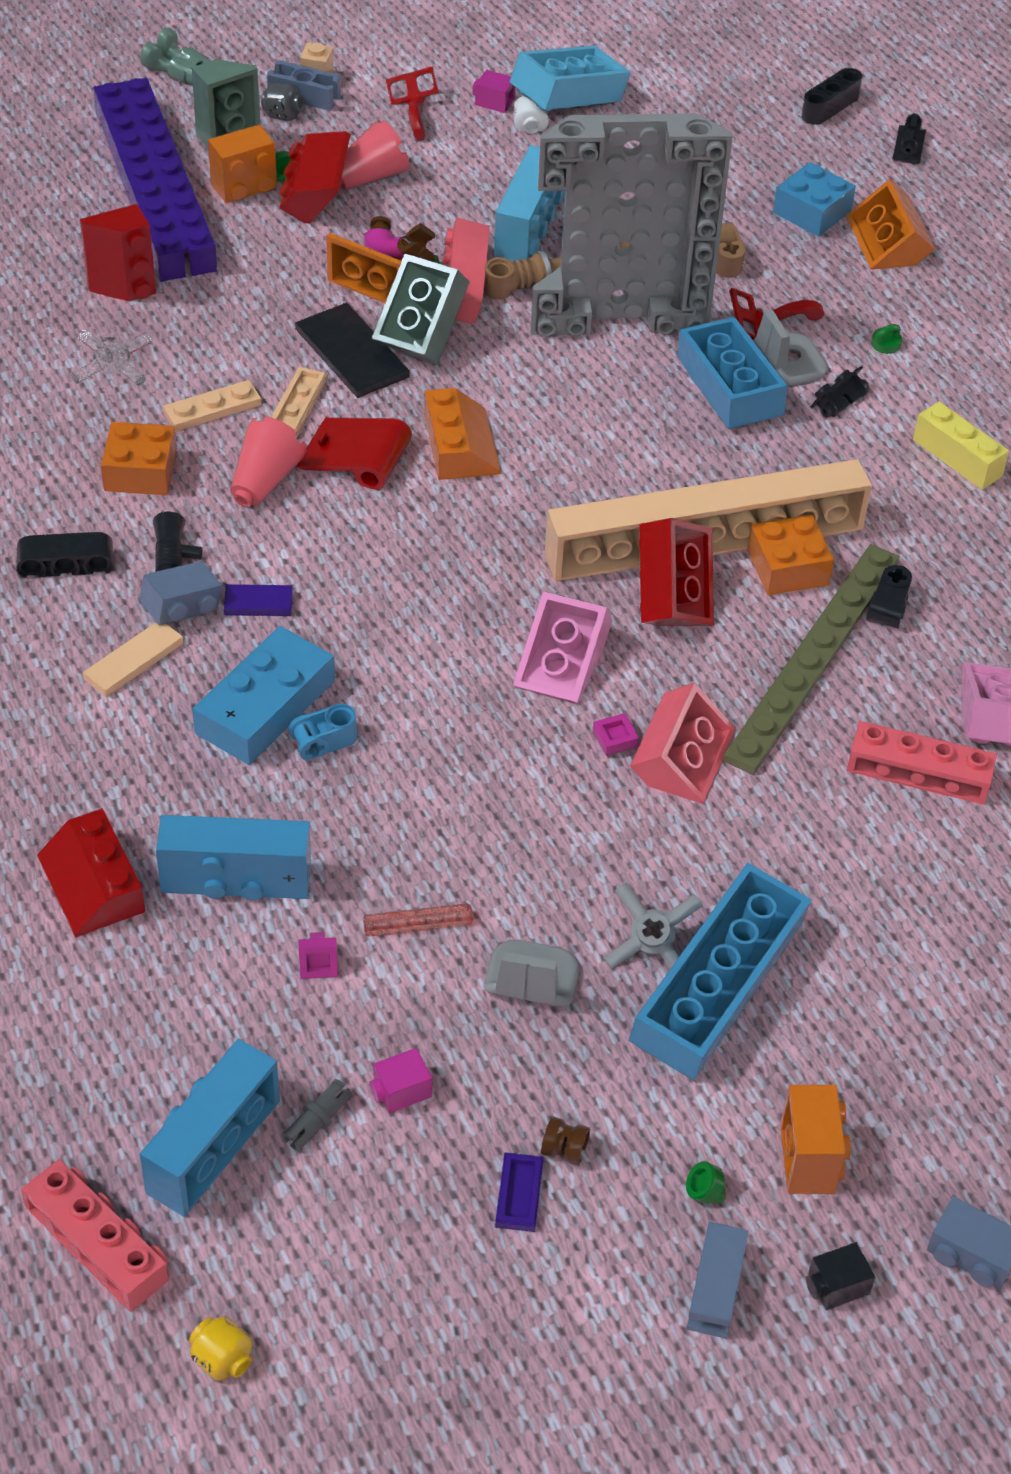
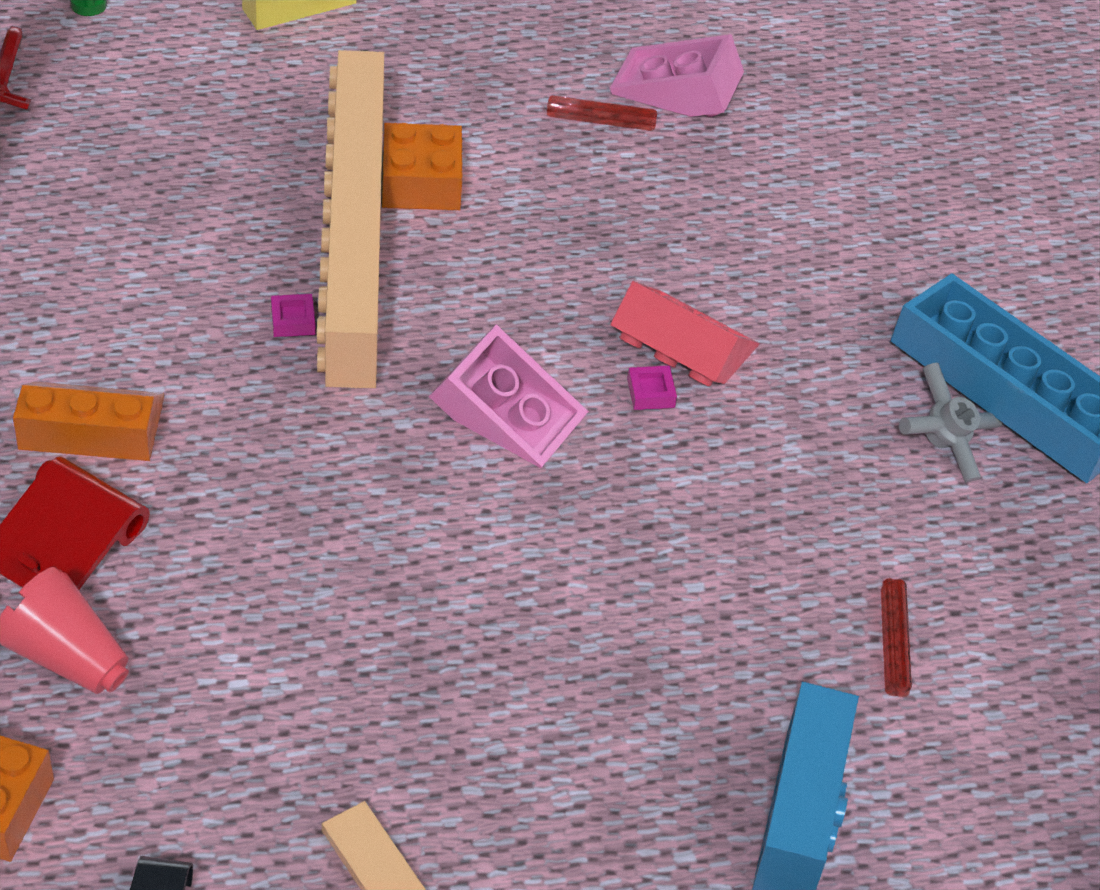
camera: 80 degrees left, 0 degrees up
(169, 549) = (181, 788): black piece -> none
(180, 592) = (294, 782): sand blue brick -> none
(258, 600) = (314, 702): dark purple tile -> none
(264, 695) = (512, 719): dark azure brick -> none
(318, 956) = (946, 742): dark pink tile -> none
(325, 730) = (587, 672): dark azure piece -> none
(533, 973) = (984, 572): light grey piece -> none
(676, 573) = (444, 261): red slope -> none
(732, 372) = (97, 130): dark azure brick -> none
(777, 342) = (78, 76): light grey piece -> none
(809, 662) = (576, 201): olive plate -> none
(831, 398) = (163, 59): black hinge -> none
(890, 597) = (512, 110): black piece -> none
(922, 762) = (748, 155): coral brick -> none
(928, 662) = (601, 113): none -> clear red axle

